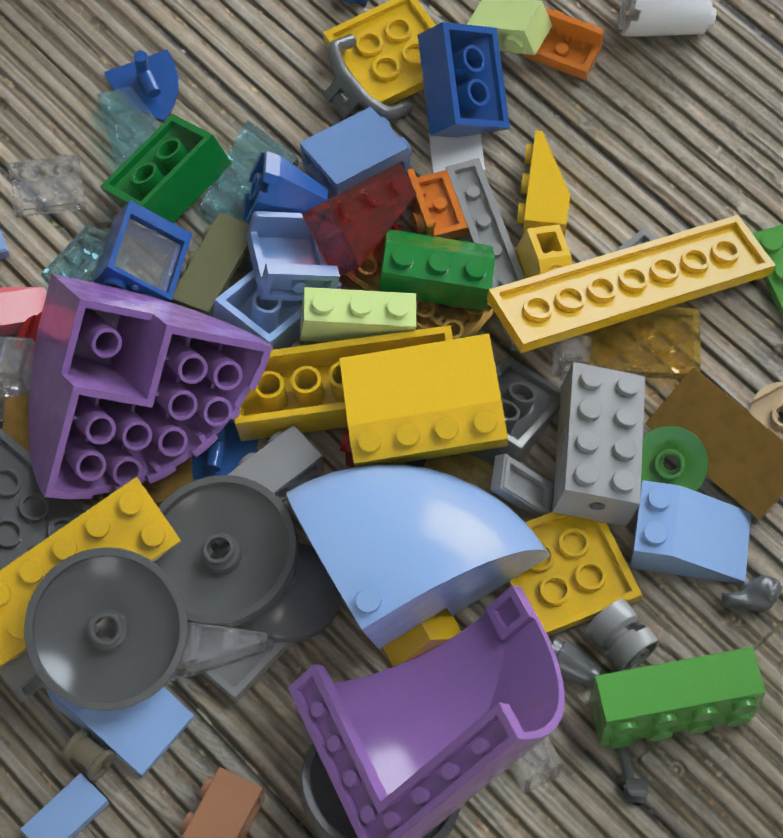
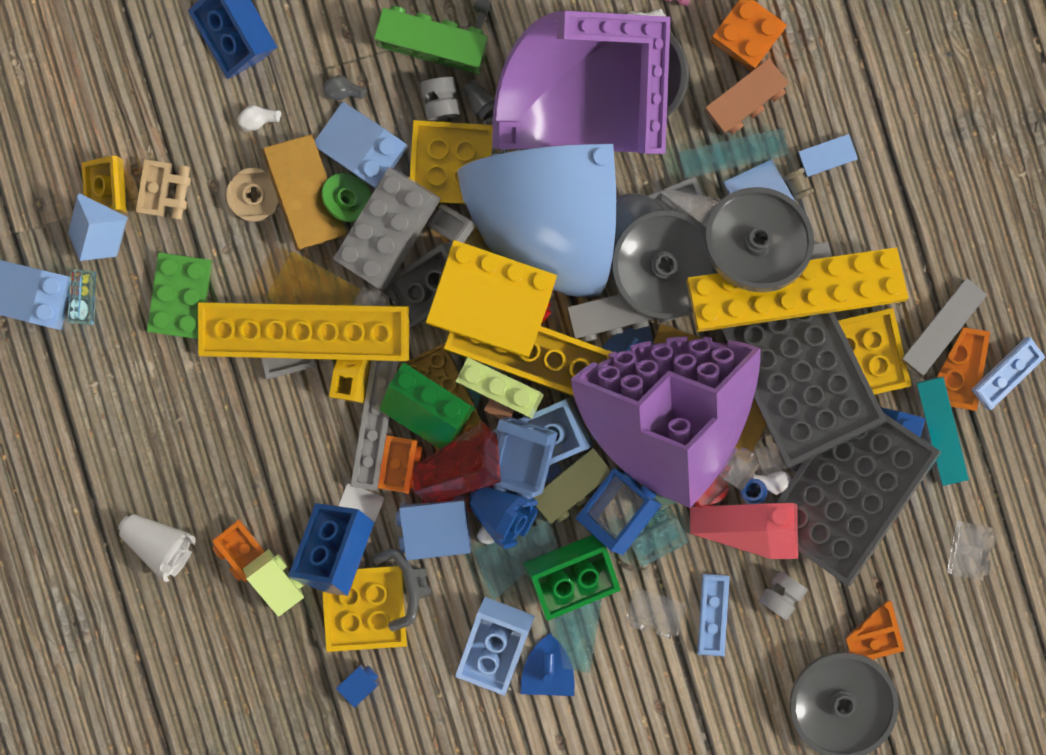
camera: 155 degrees left, 25 degrees up
(196, 755) = (733, 153): none -> clear light blue plate
(222, 78) = (494, 646): none -> light blue slope
(545, 189) = (320, 433): yellow slope -> none

